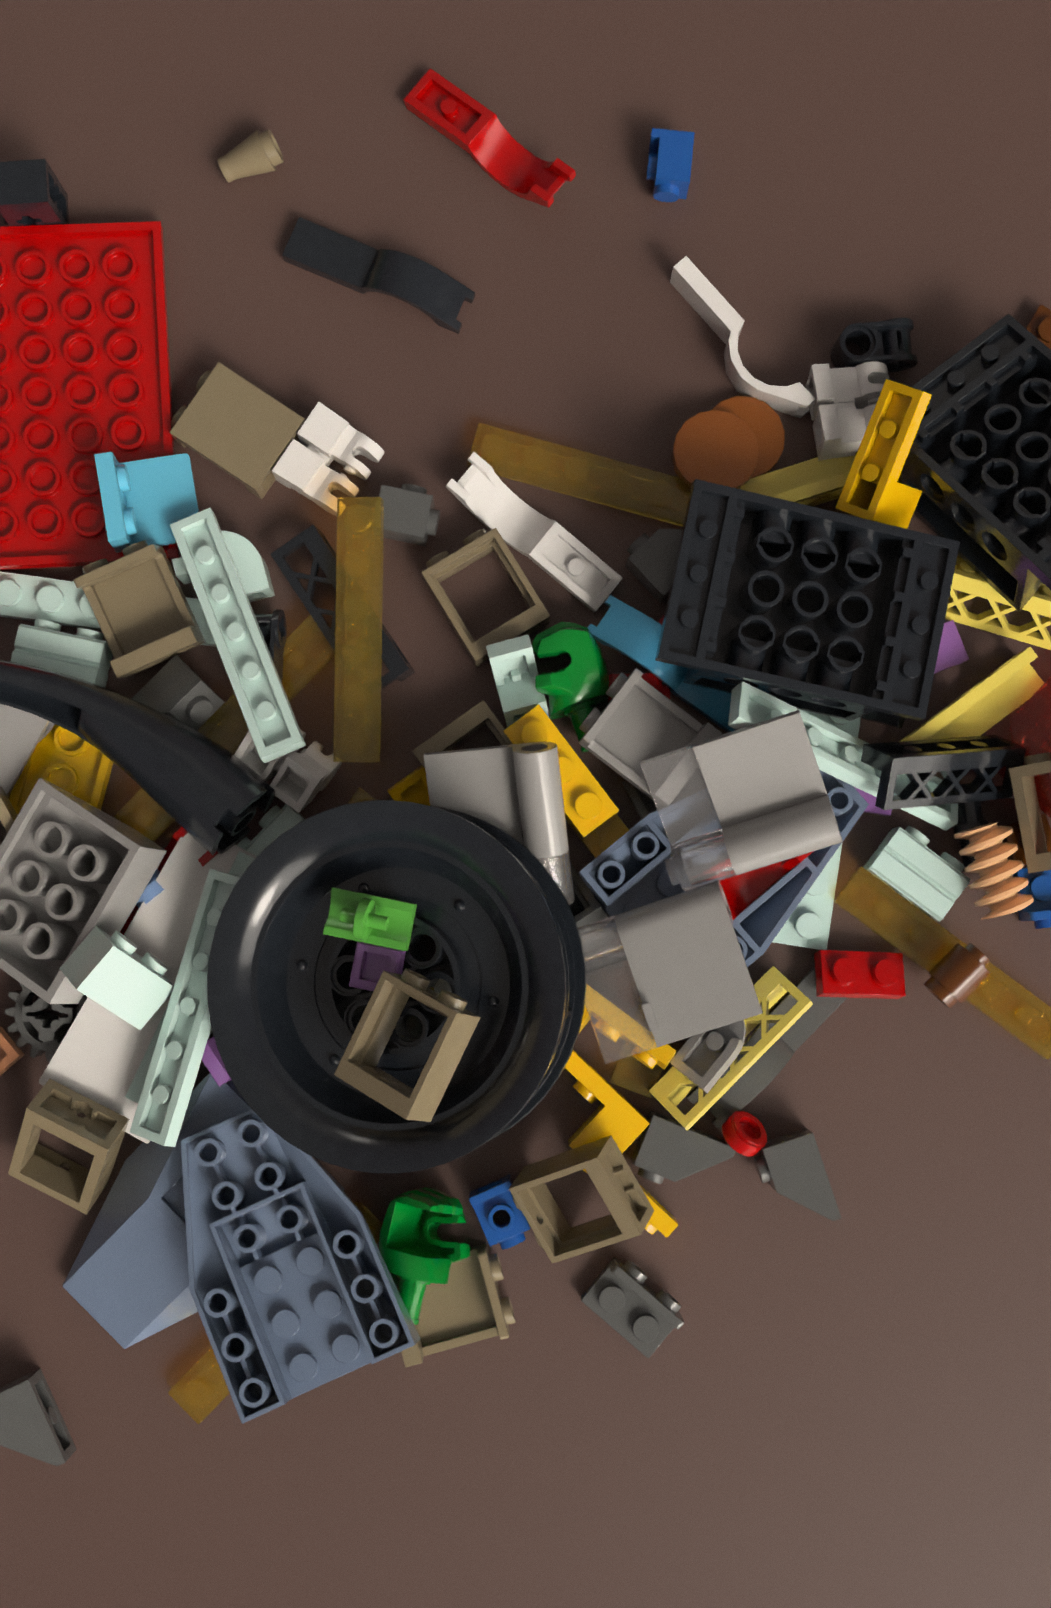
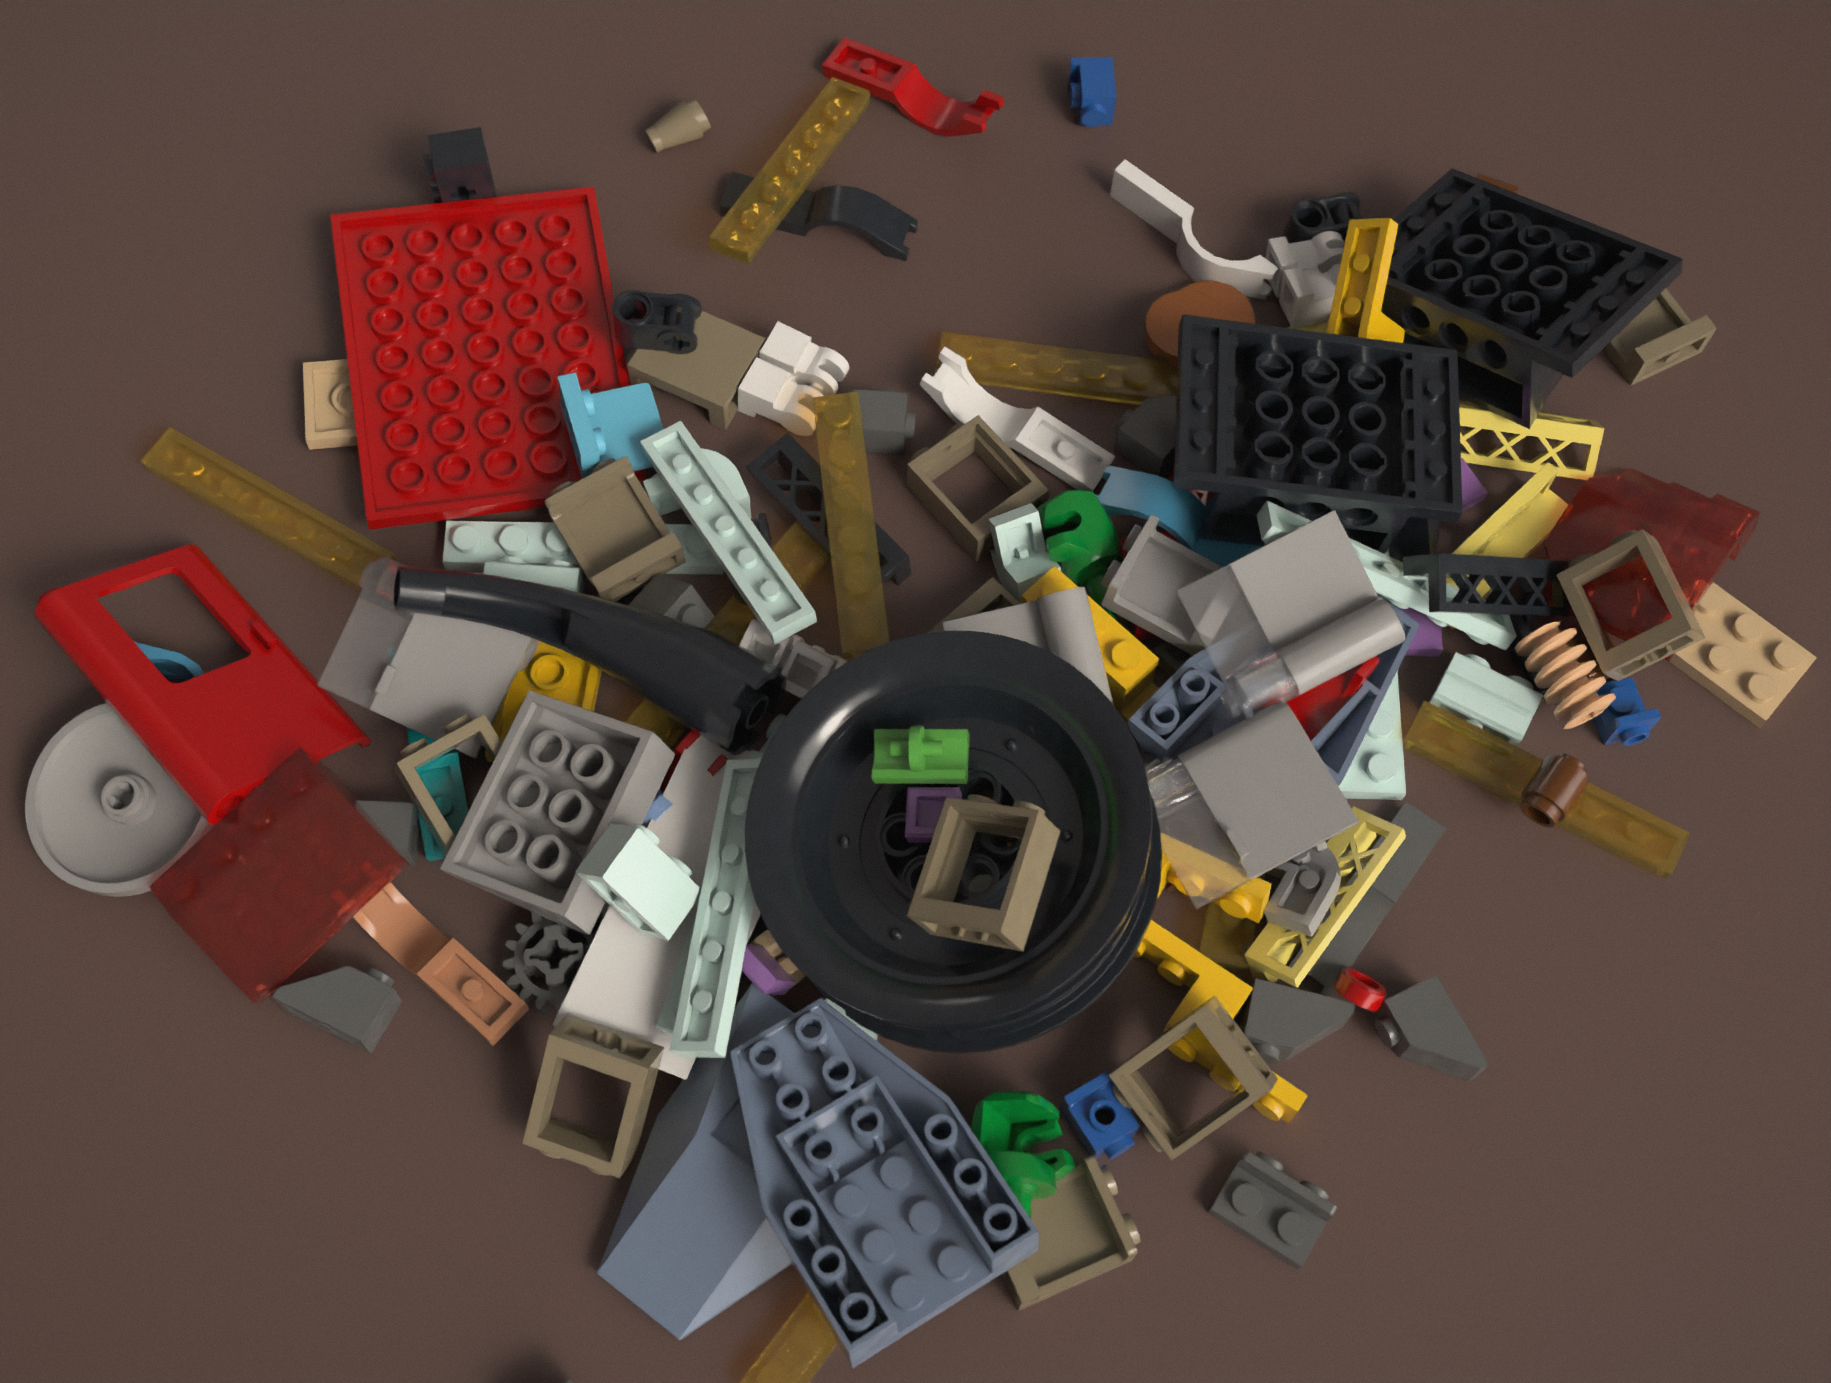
camera: 10 degrees left, 20 degrees down
(208, 398) = (657, 322): none -> black piece
(353, 227) = (789, 171): none -> clear yellow plate
(859, 974) = (1447, 811): red plate -> none

